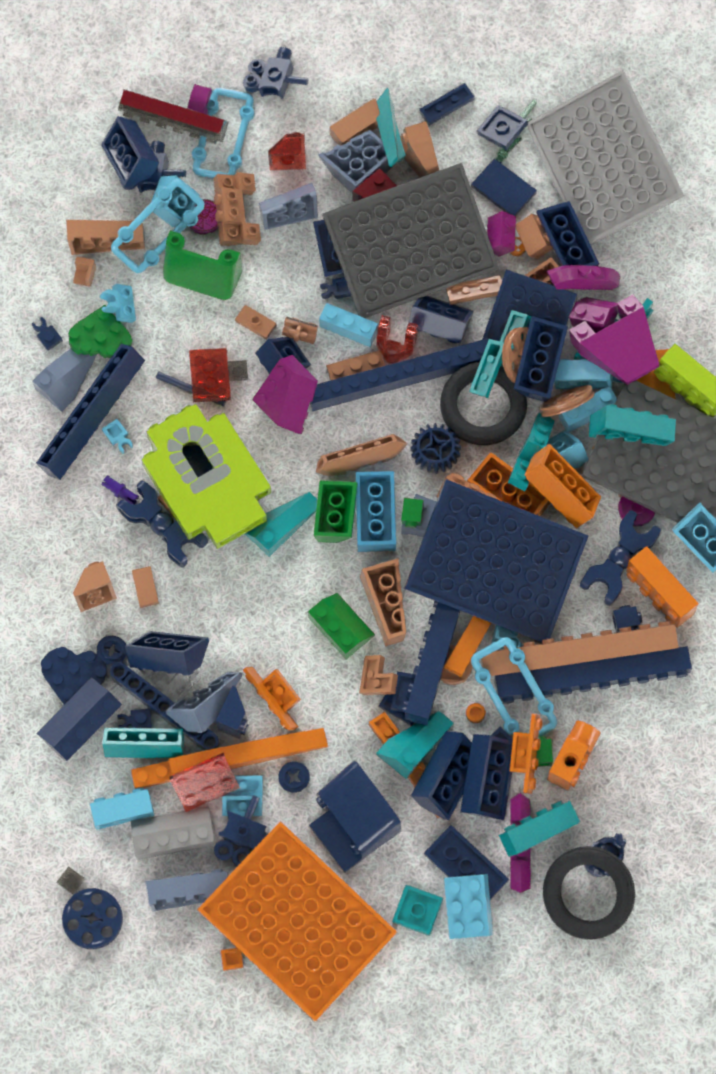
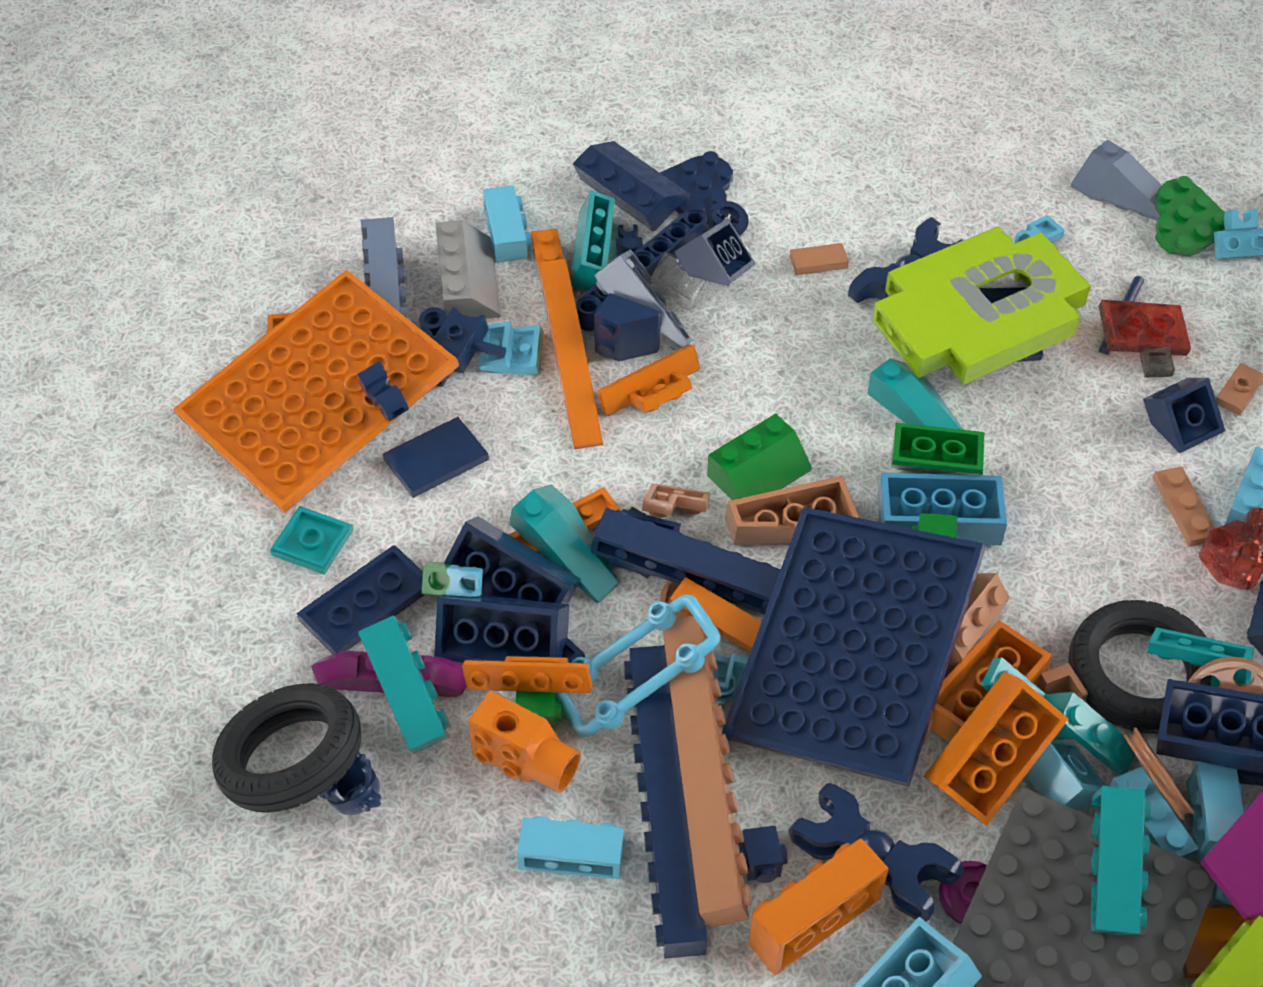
camera: 90 degrees right, 20 degrees down
(48, 335) = (1179, 168): dark blue plate -> none
(70, 880) = (417, 176): clear smoke plate -> none
(87, 911) = (359, 190): dark blue wedge -> none
(90, 411) = (1073, 202): dark blue brick -> none
(94, 587) = (811, 185): nougat slope -> none
(120, 490) = (962, 229): dark purple pin -> none
(204, 782) = (529, 297): clear red plate -> none
(287, 394) = (1123, 398): magenta wedge -> none
(293, 768) = (531, 395): dark blue gear -> none
(300, 330) = (1233, 433): nougat hips -> none
(315, 866) = (383, 395): none -> dark blue leg
(359, 809) = (466, 460): dark blue windscreen -> none
(364, 454) = (1040, 512): nougat brick -> none
(396, 375) = (1171, 537): dark blue brick -> none
(431, 433) = (1052, 604): dark blue gear -> none
(459, 808) = (451, 580): none -> leg
(468, 906) = (297, 587): medium azure brick -> none
(475, 713) = (610, 629): orange tile -> none
(504, 449) = (1061, 680): none -> nougat panel
(631, 725) = (570, 847): none -> medium azure brick

